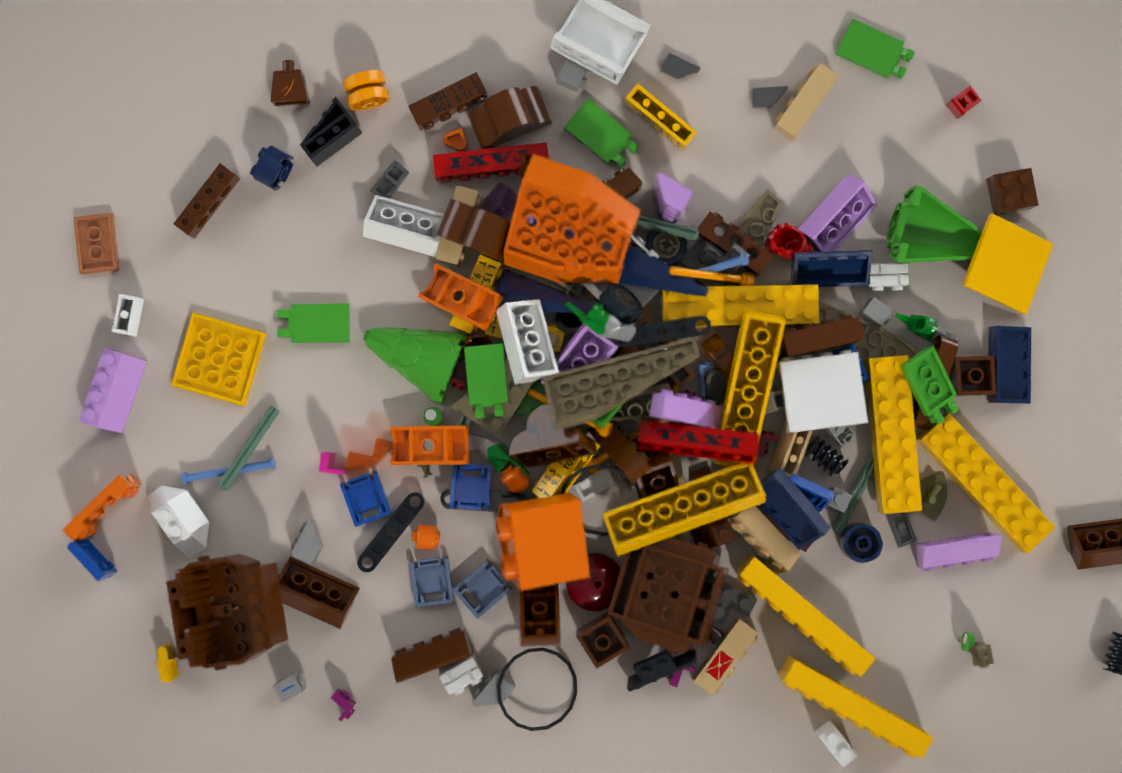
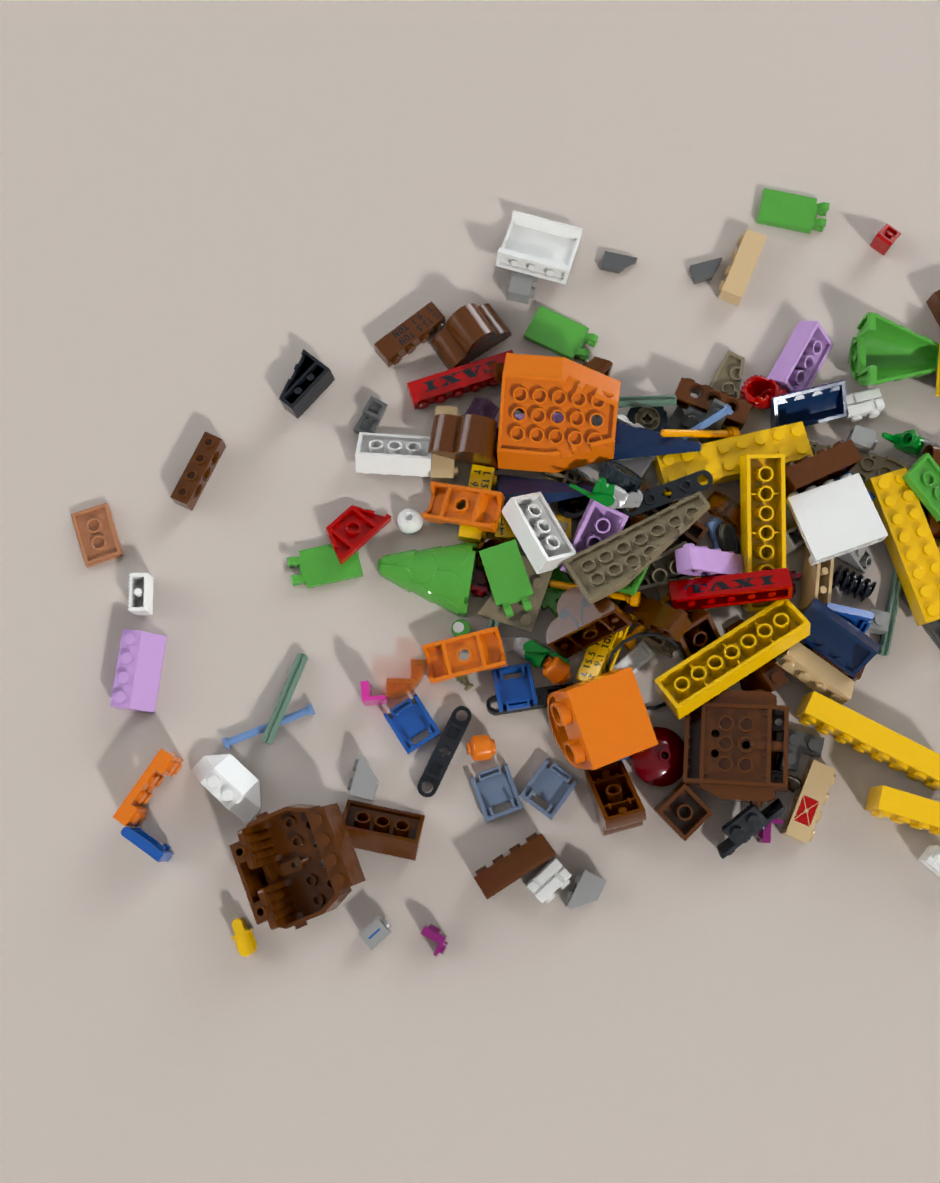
camera: 10 degrees left, 10 degrees down
(218, 359) = (238, 619): yellow tile -> none
(272, 167) = (256, 425): dark blue brick -> none
(289, 86) = (257, 352): reddish brown torso -> none
(349, 295) = (354, 530): none -> red wing
(366, 90) = (331, 338): light orange wheel -> none
(406, 297) = (409, 521): none -> white brick
(456, 140) = (424, 367): orange tile -> none
(502, 676) = (592, 886): black piece -> none
(660, 117) = (612, 306): yellow brick -> none
(670, 198) = (641, 369): lavender slope -> none
(853, 550) = (910, 649): dark blue brick -> none

